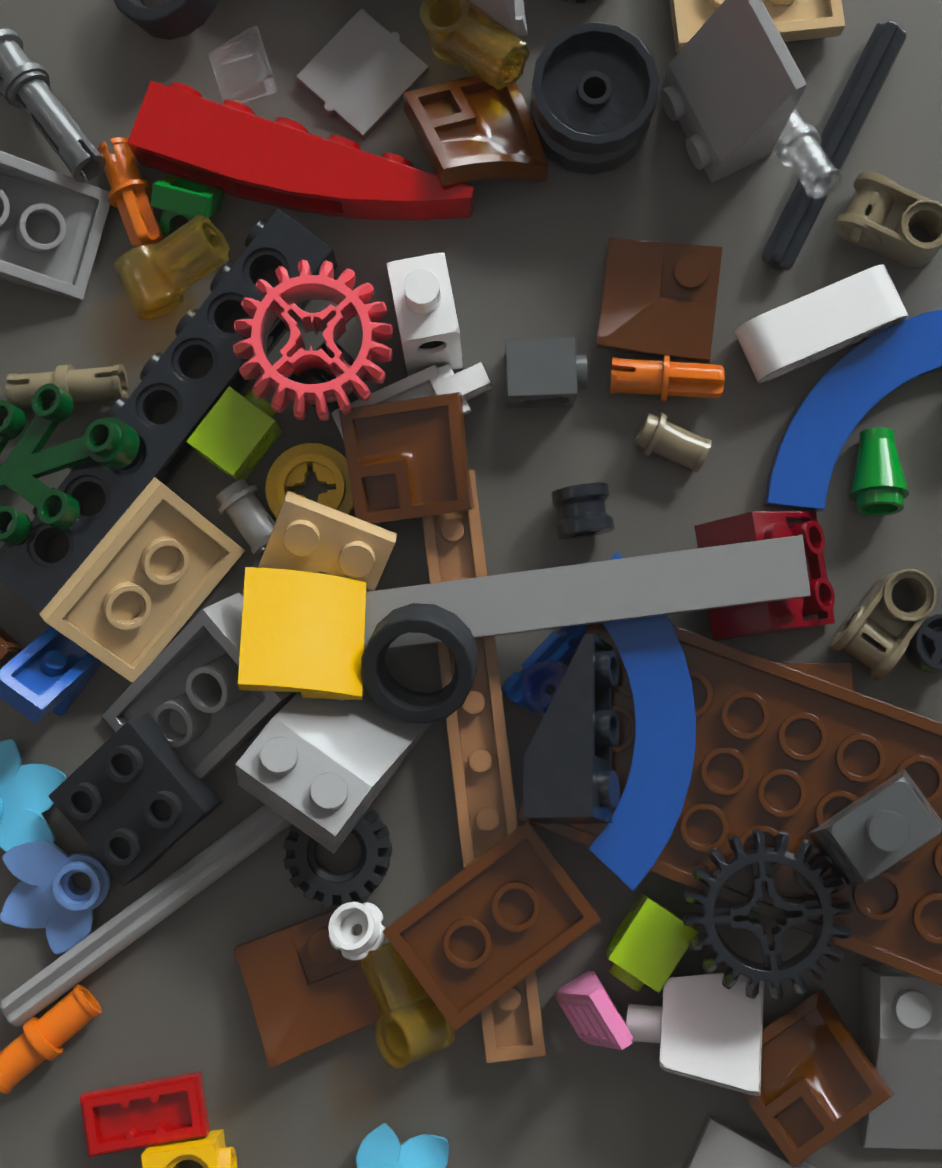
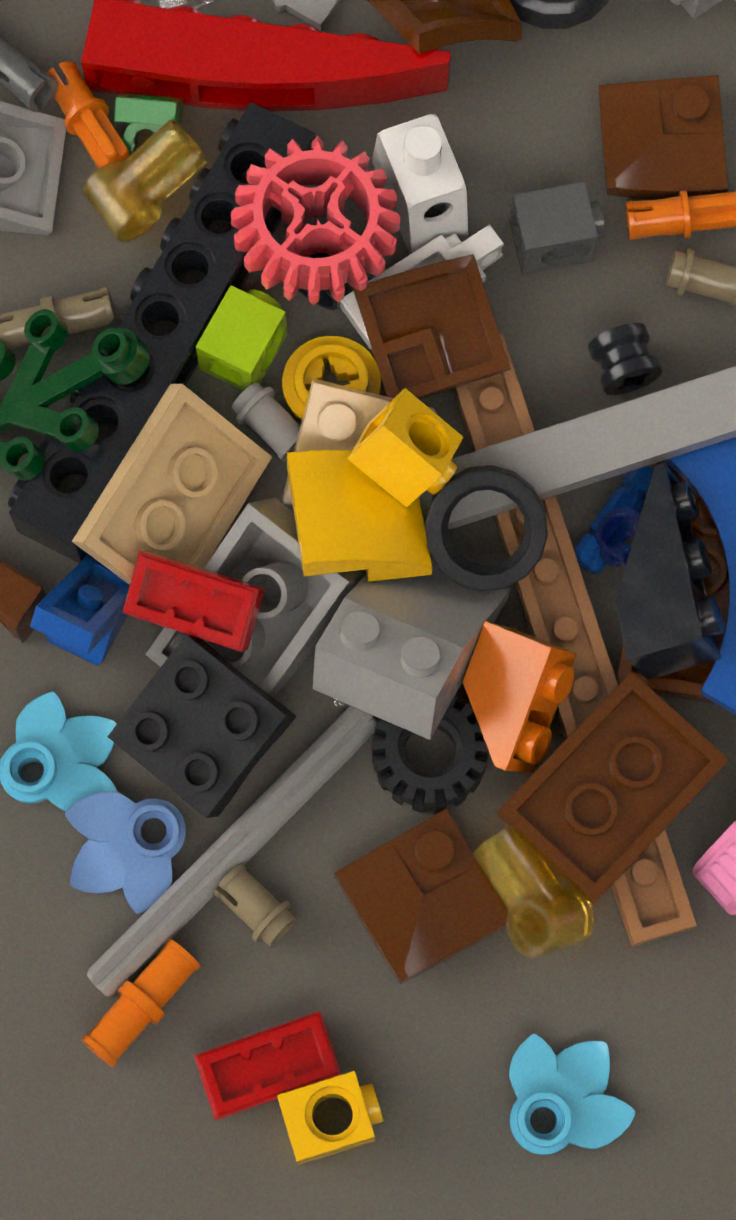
camera: 10 degrees left, 10 degrees down
(142, 687) = (193, 600): none -> red plate
(159, 967) = (256, 906): none -> dark tan pin
(336, 588) = (407, 449): none -> yellow brick
(346, 919) = (458, 809): white plate -> none
(420, 816) = (515, 693): none -> orange slope

